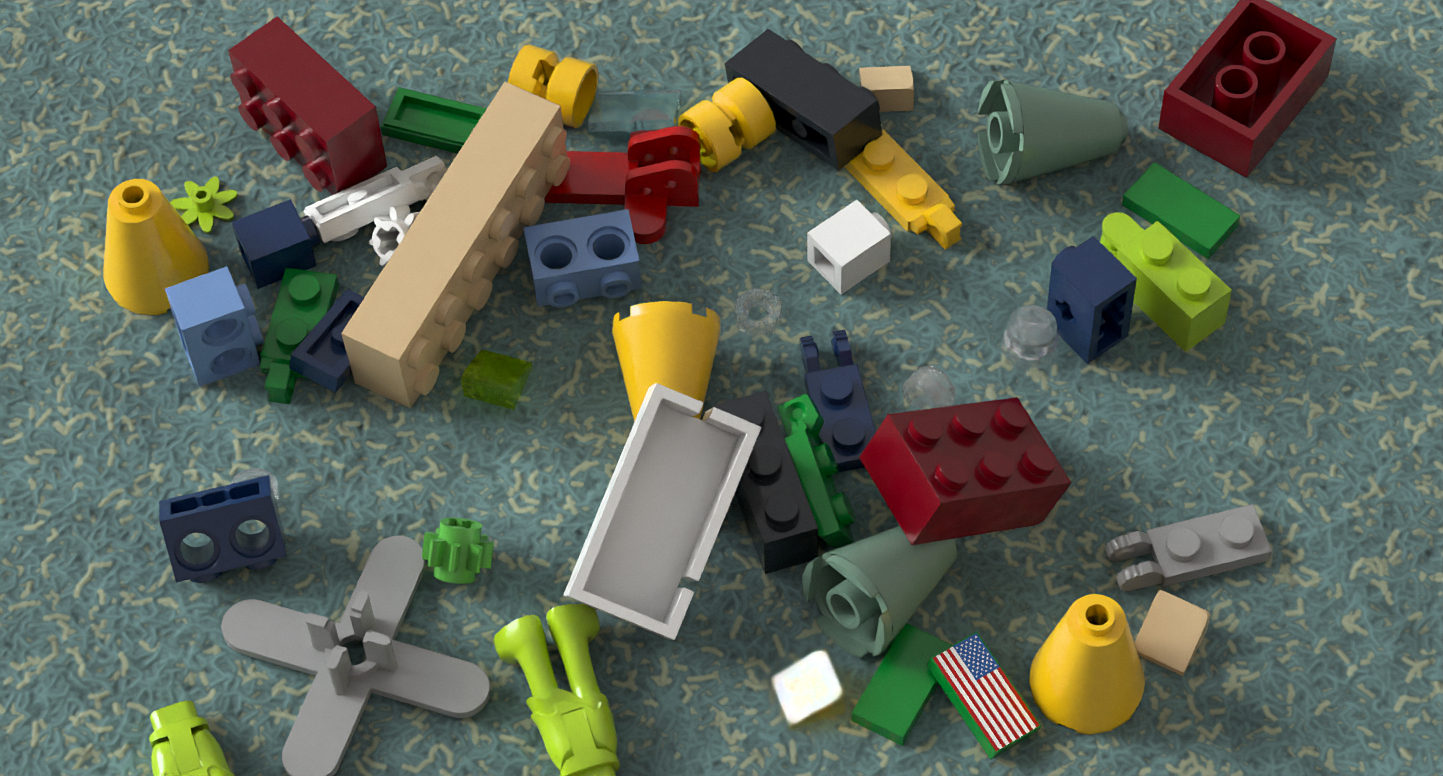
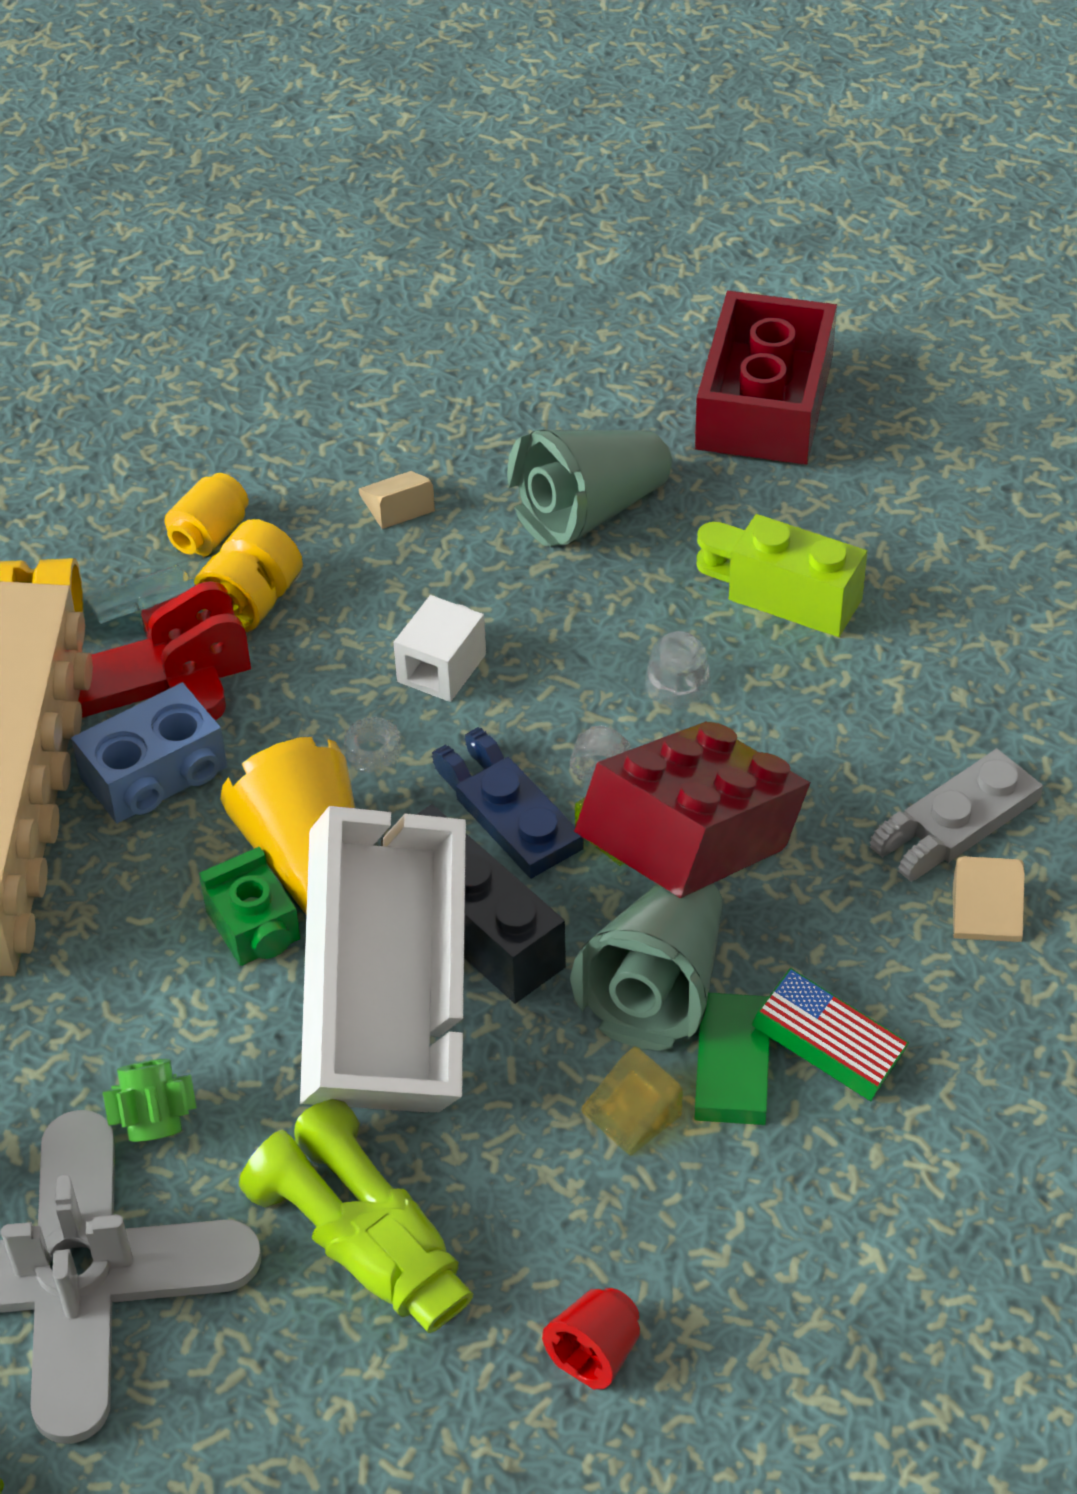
camera: 25 degrees left, 10 degrees down
(495, 378) = (104, 911): clear neon green slope -> none
(598, 420) = (249, 907): none -> green brick
(711, 50) = (206, 514): none -> yellow brick
(809, 98) = (333, 524): black brick -> none
(815, 469) = (488, 826): green hinge -> none
(906, 190) = (468, 580): yellow hinge -> none
(1088, 668) = (930, 956): yellow cone -> none
(1091, 298) = (729, 604): dark blue brick -> none
(1181, 209) = (739, 501): green tile -> none

